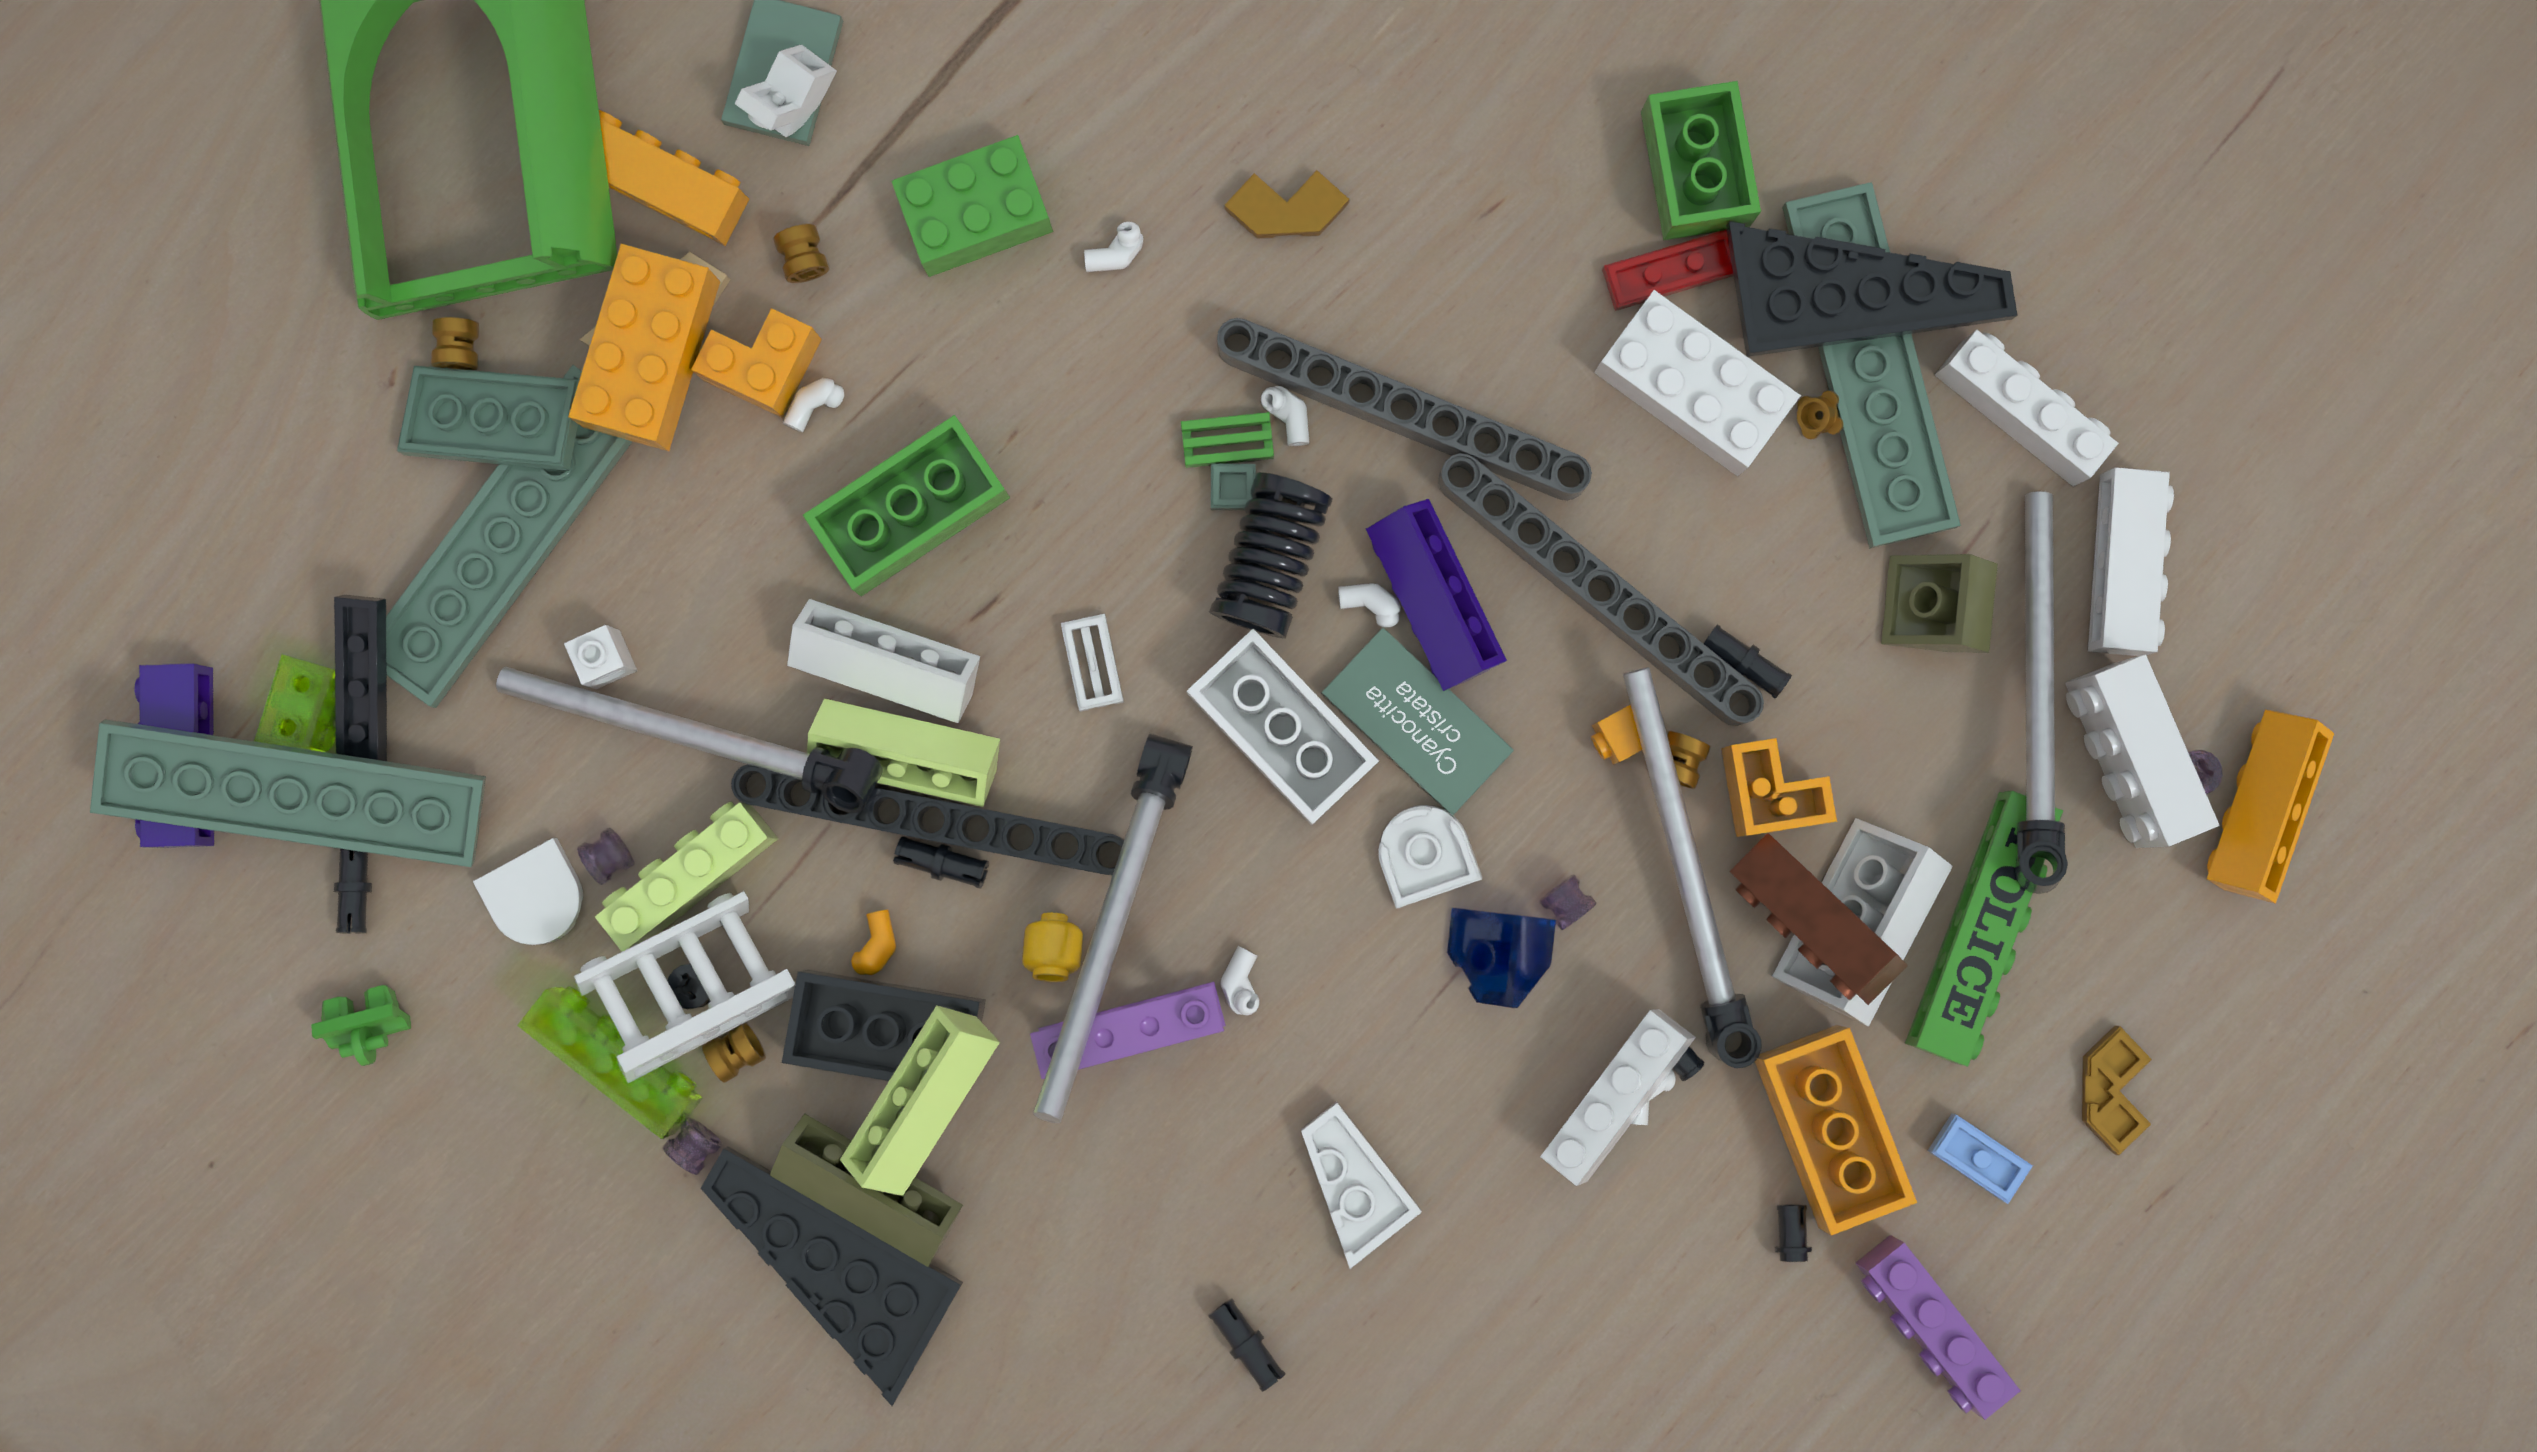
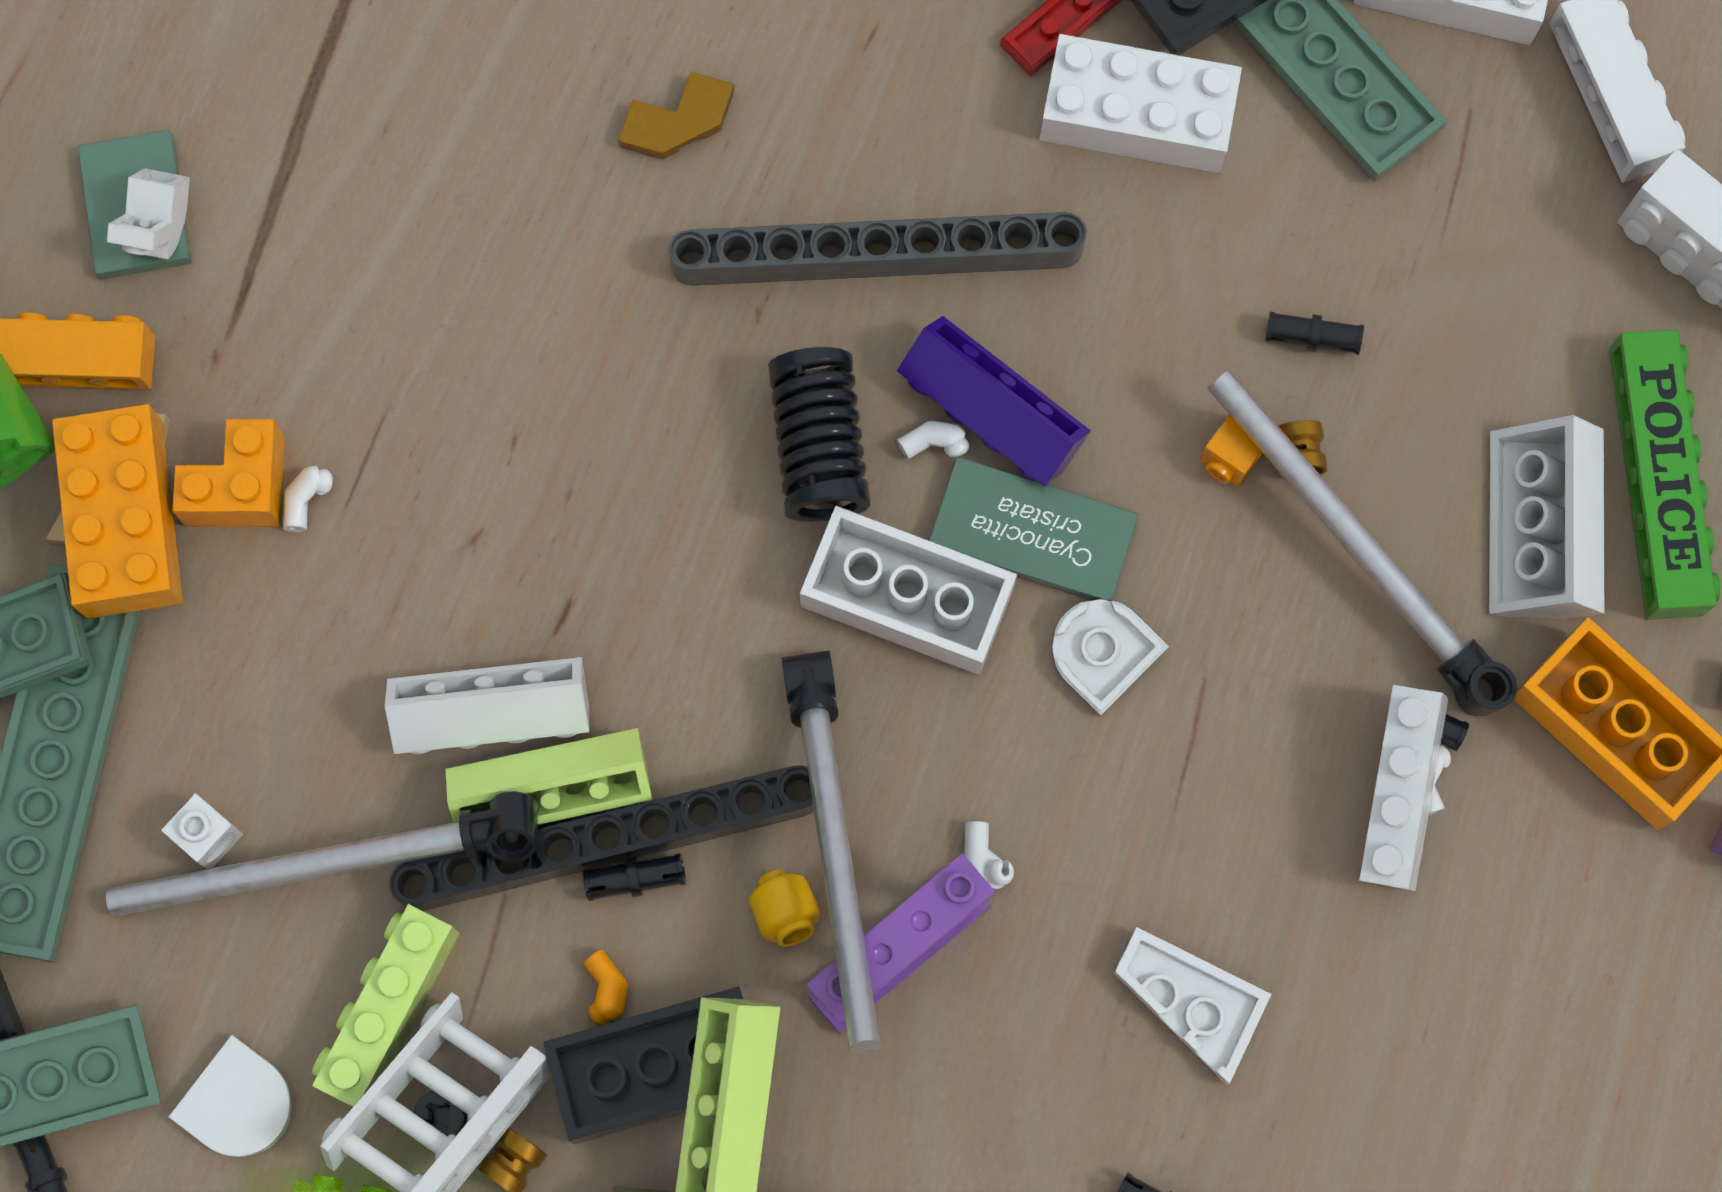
camera: 25 degrees left, 10 degrees down
(605, 856) = (294, 1027): clear purple wheel -> none
(801, 253) = (230, 362): pearl gold wheel -> none
(906, 506) = (443, 547): bright green brick -> none
(972, 206) = (378, 244): bright green brick -> none
(1099, 700) = (717, 650): white tile -> none
(1119, 253) = (538, 227): white arm -> none
(1227, 439) = (713, 338): bright green tile -> none
(1231, 485) = (748, 393): sand green tile -> none
(1290, 410) = (772, 299): white arm -> none
(1500, 953) = (1221, 706): clear blue slope -> none
(1567, 902) = (1261, 631): clear purple wheel -> none
(1621, 597) = (1167, 321): dark grey beam -> none
(1763, 800) = (1399, 448): light orange brick -> none
(1792, 1233) = (1636, 846): black pin -> none
(1807, 415) = (1254, 84): pearl gold plate -> none
(1818, 918) = (1506, 529): copper brick -> none
(1940, 602) = (1465, 198): olive slope -> none
(2040, 832) = (1668, 355): flat silver piece -> none

